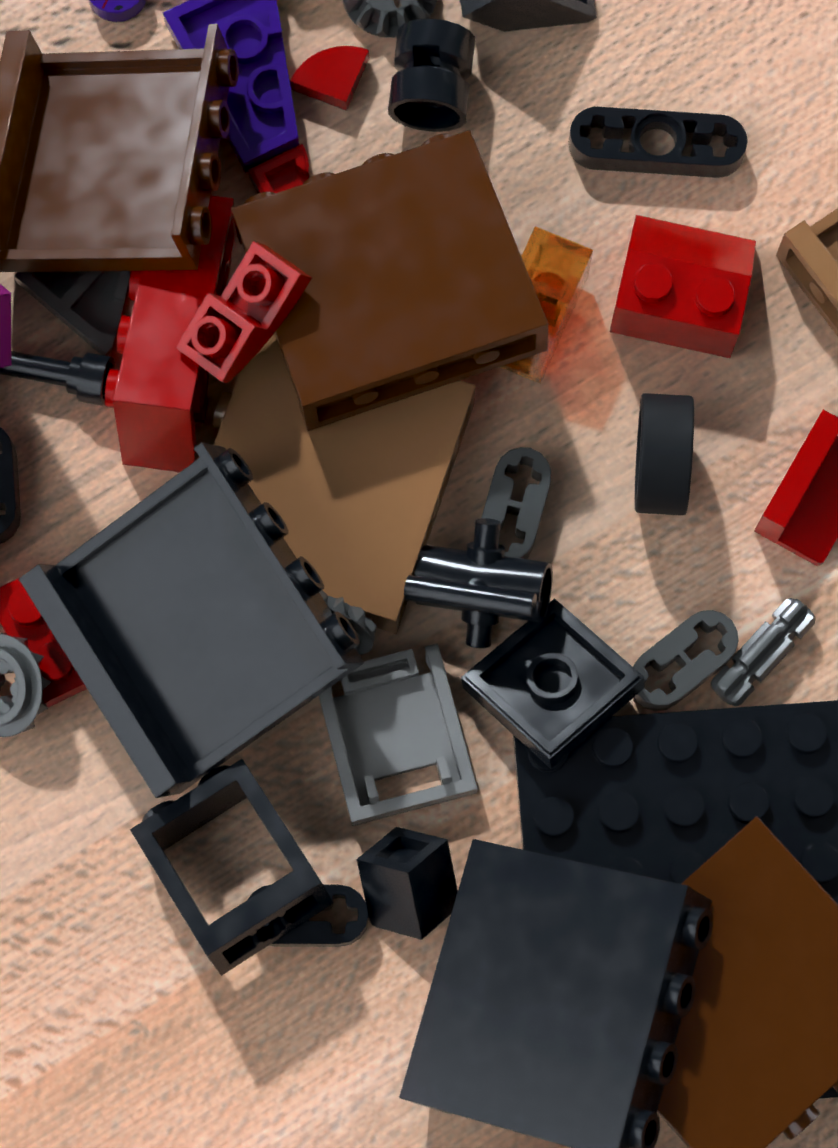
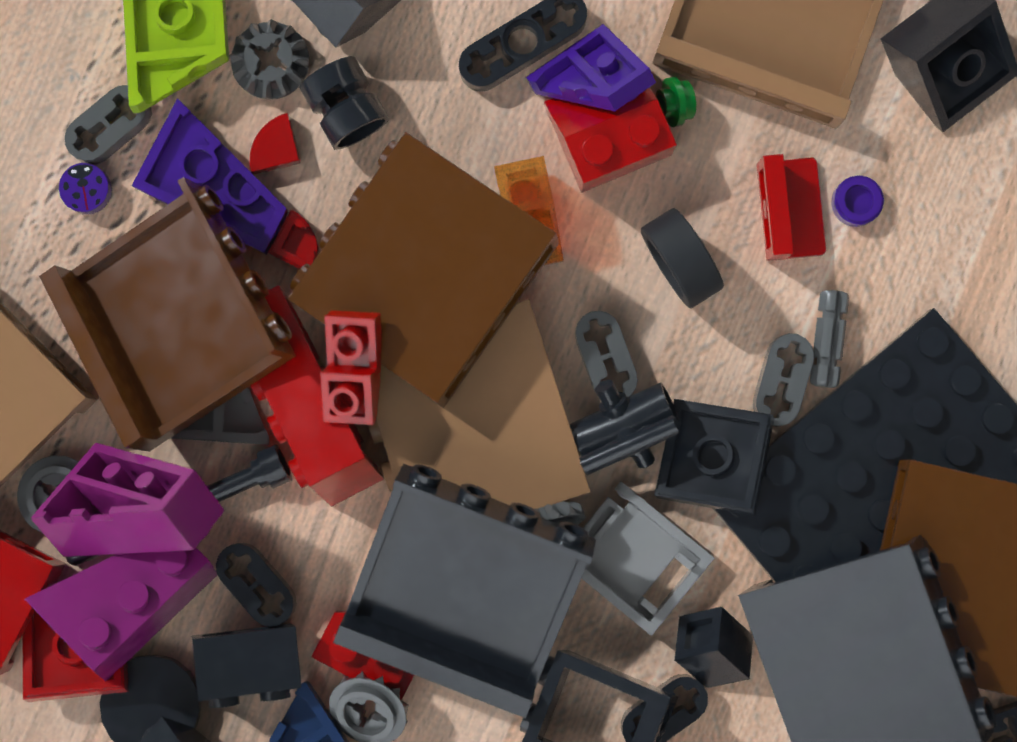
camera: 35 degrees left, 10 degrees up
(705, 214) = (594, 73): none -> dark purple wing
(771, 302) = (677, 101): none -> green plate

